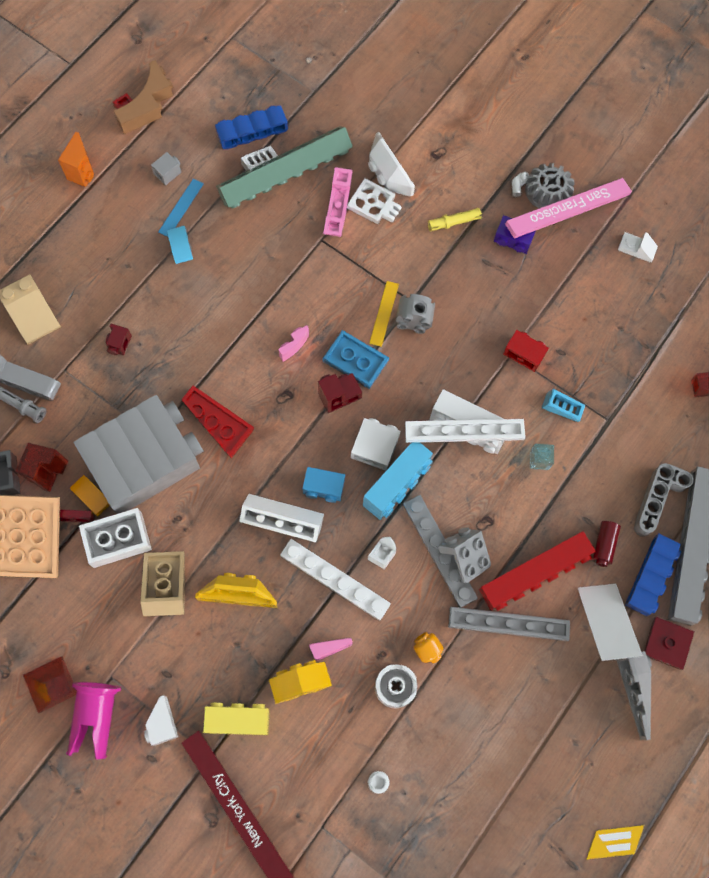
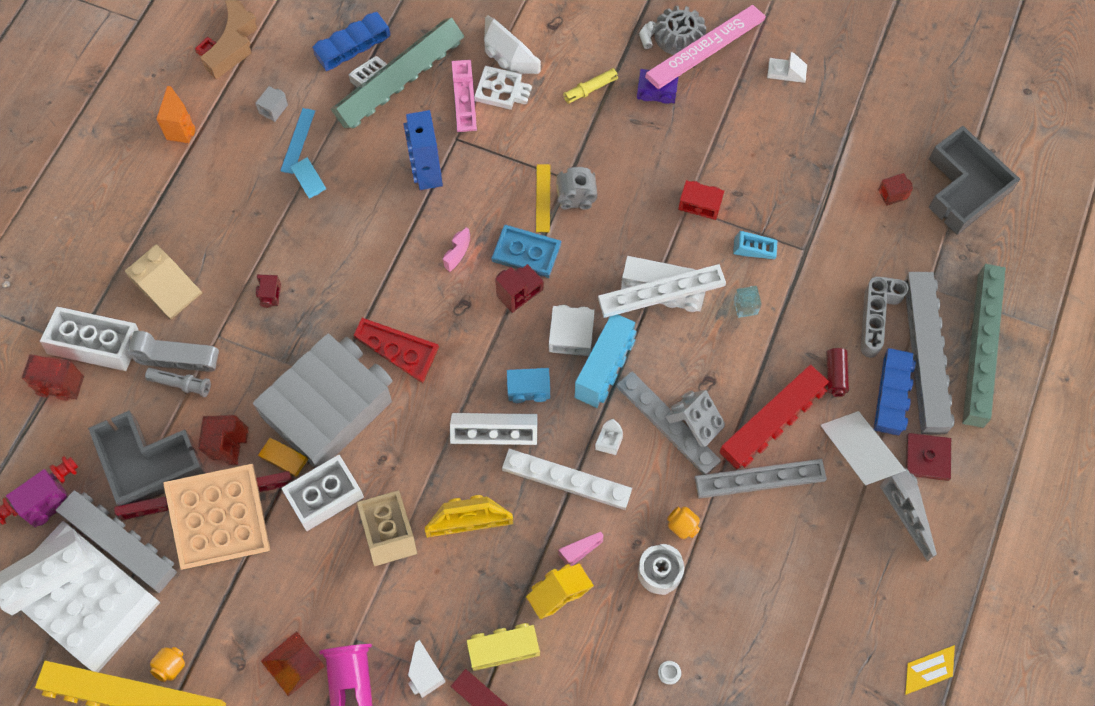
camera: 10 degrees left, 5 degrees down
(285, 245) = (423, 150): none -> blue brick

